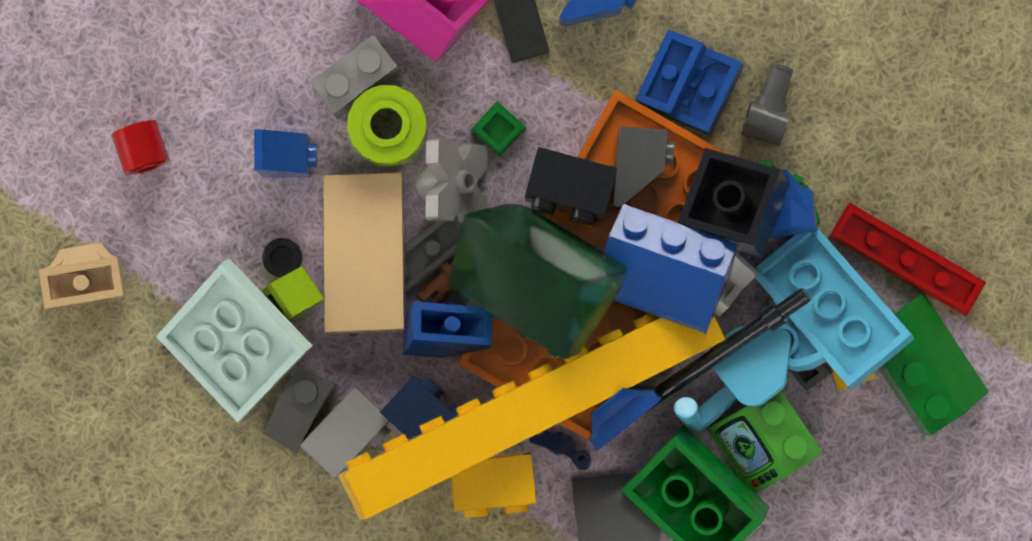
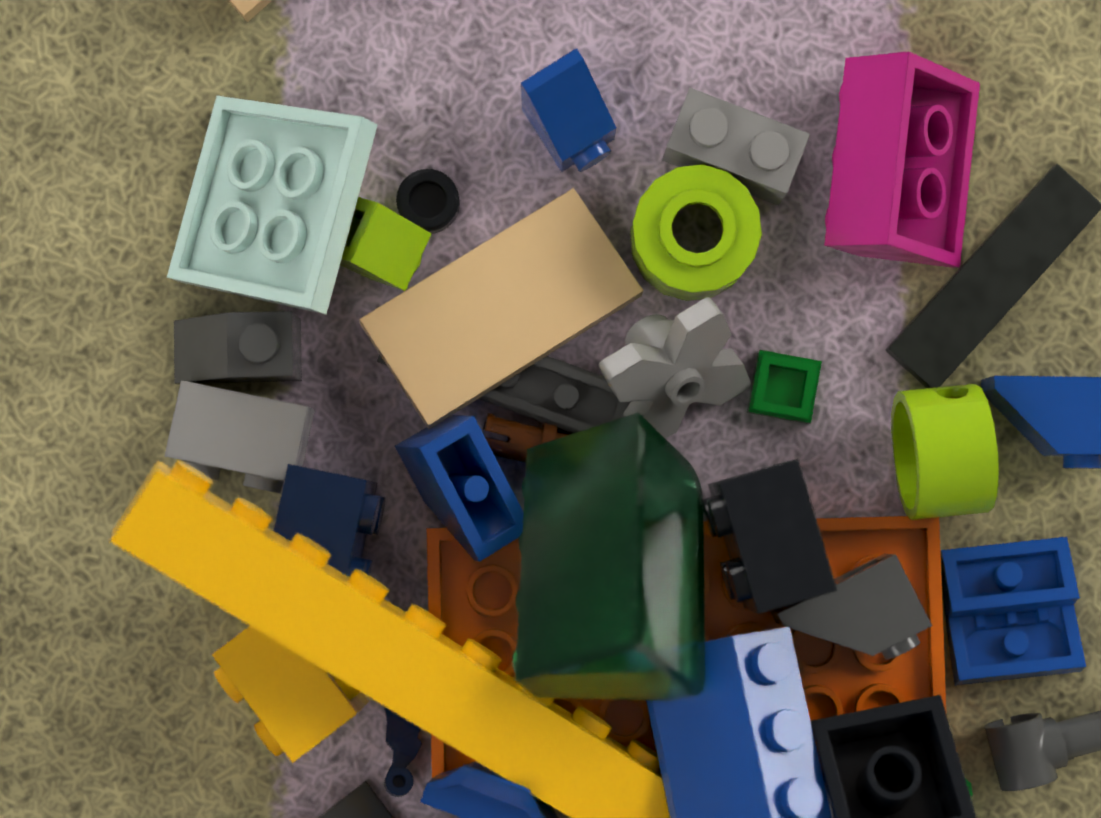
camera: 55 degrees right, 0 degrees up
(583, 66) = (944, 451): none -> lime piece

